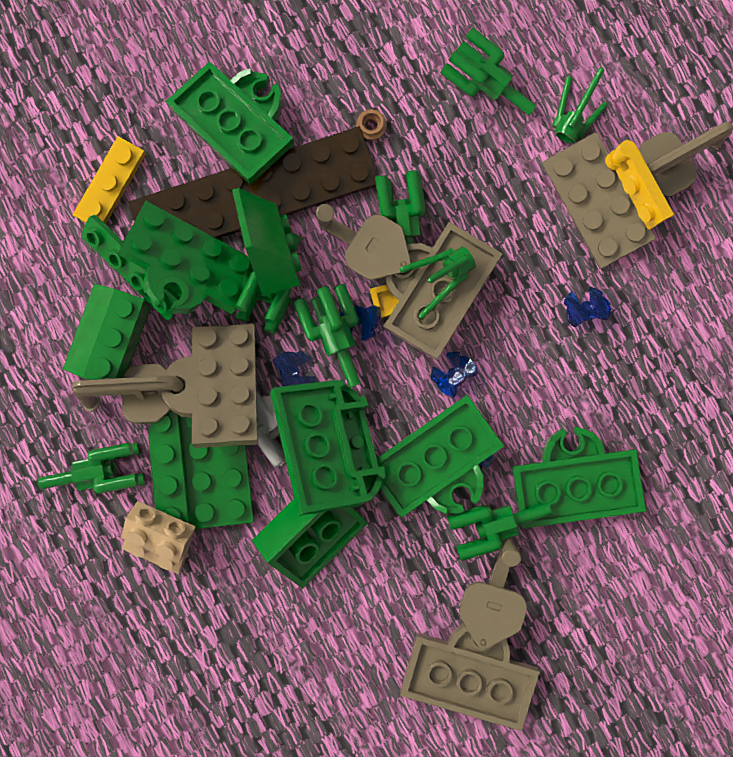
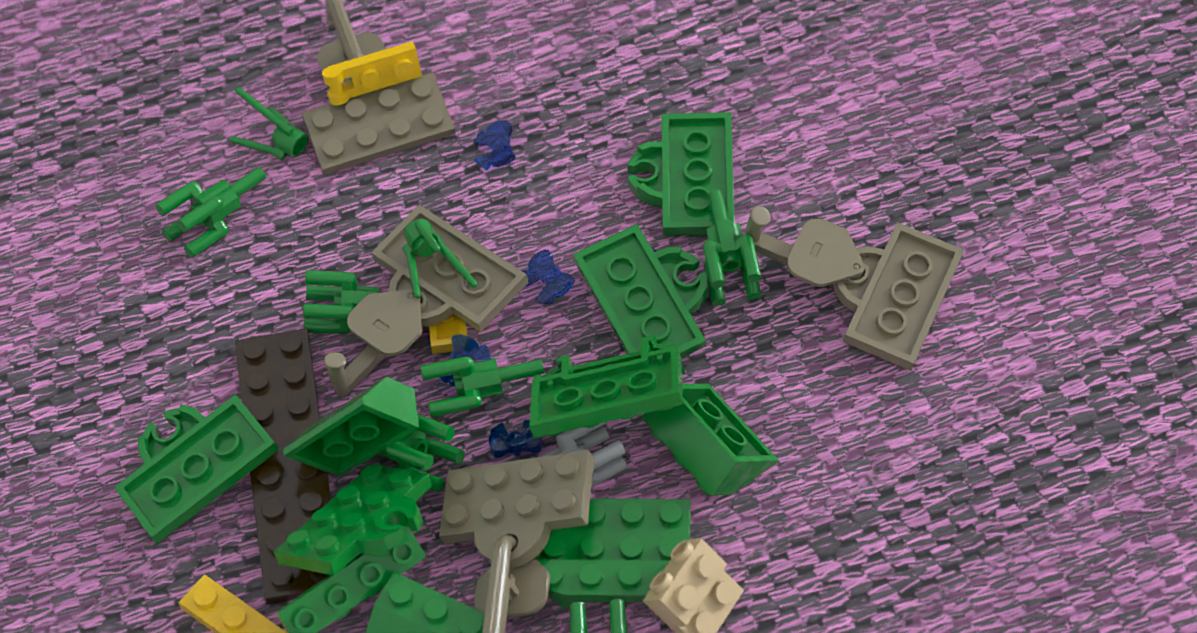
camera: 80 degrees left, 30 degrees down
(375, 116) = (232, 322): medium nougat plate -> none

